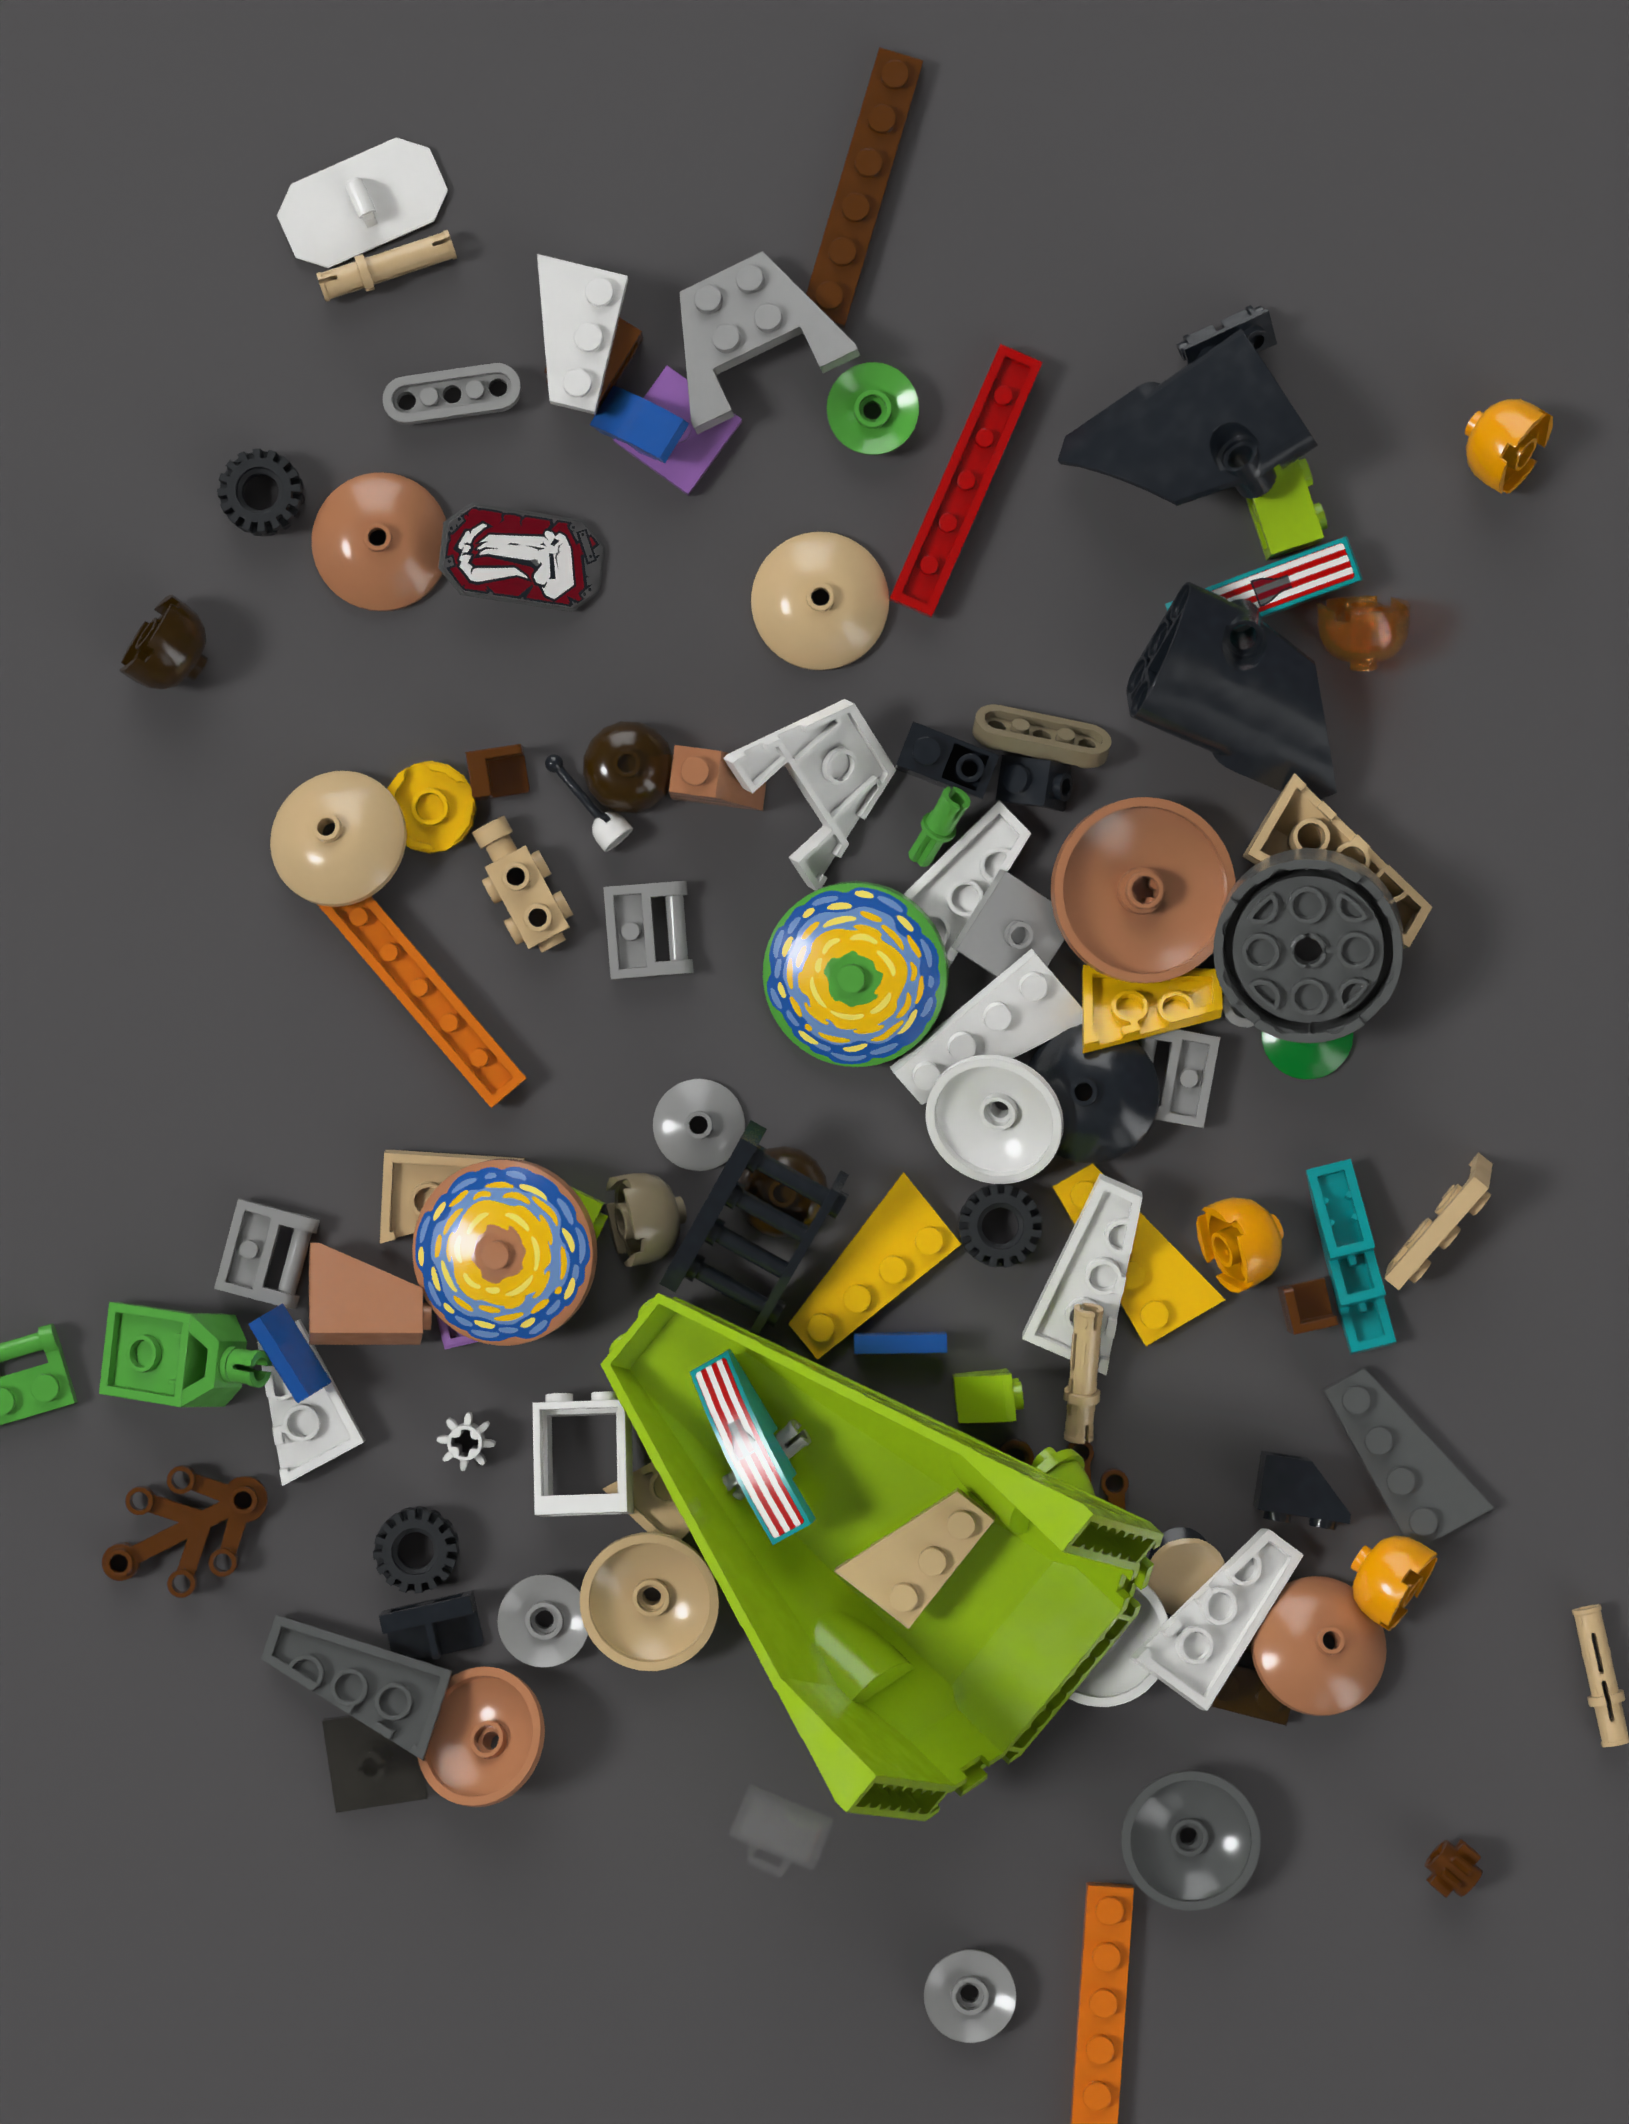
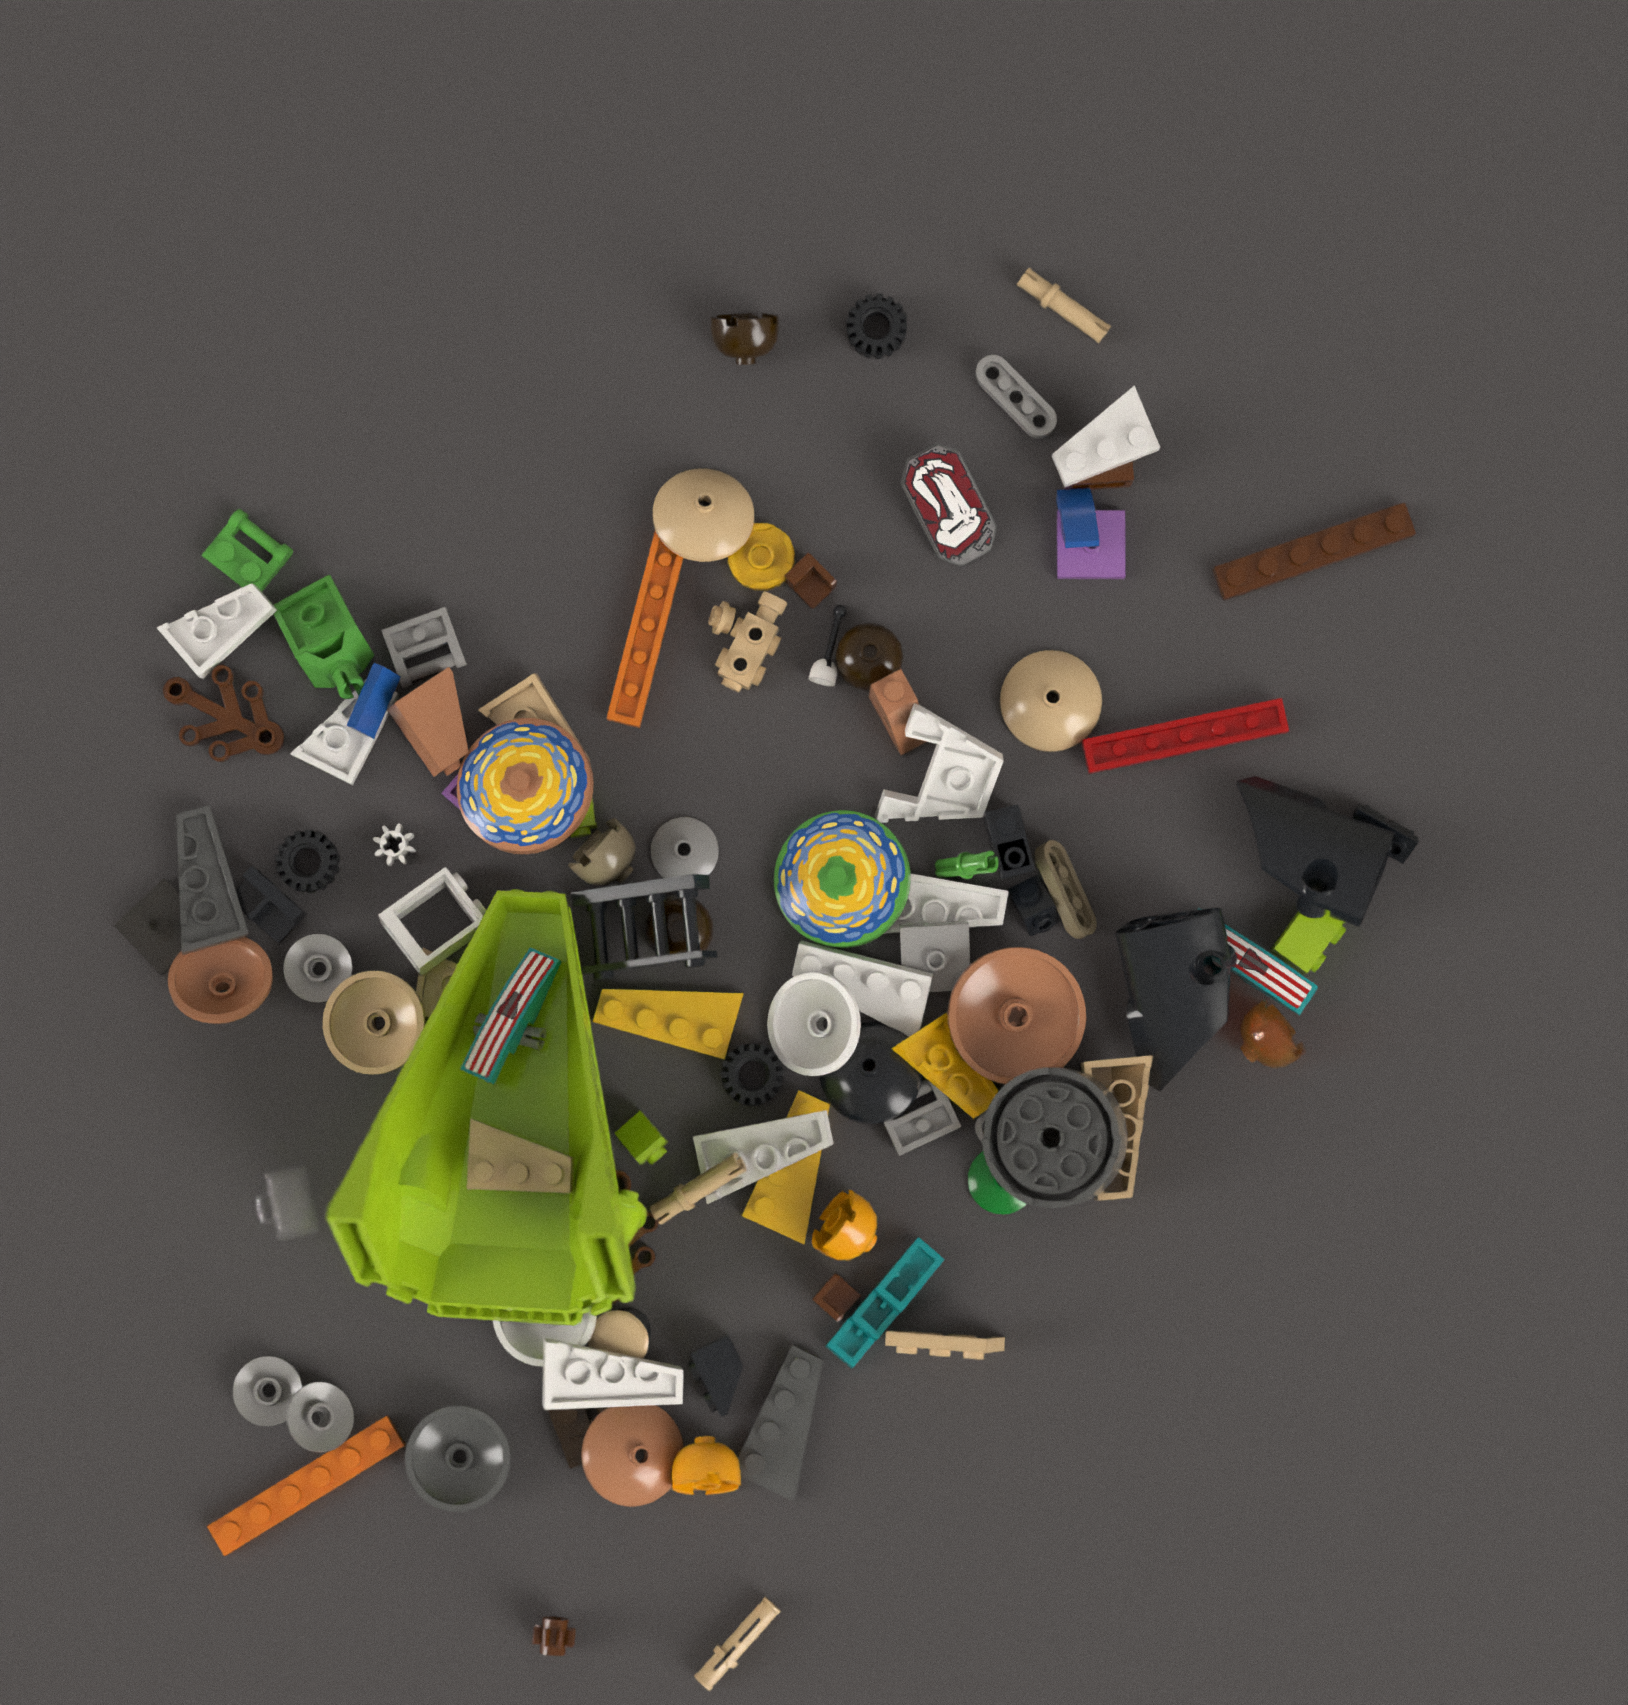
camera: 50 degrees right, 5 degrees down
(83, 1468) = (218, 629): none -> white wing
(362, 202) = (1090, 266): white shield -> none
(387, 574) = (892, 438): nougat dish -> none
(469, 900) = (722, 618): none -> tan plate
(632, 930) = (772, 728): light grey plate -> none
(741, 317) = (1185, 533): light grey wing -> none
(876, 385) = (1198, 636): bright green dish -> none
(900, 1342) = (638, 1064): blue tile -> none
(1041, 1938) = (334, 1413): none -> light grey dish
(1504, 442) = (1443, 1043): light orange cylinder -> none

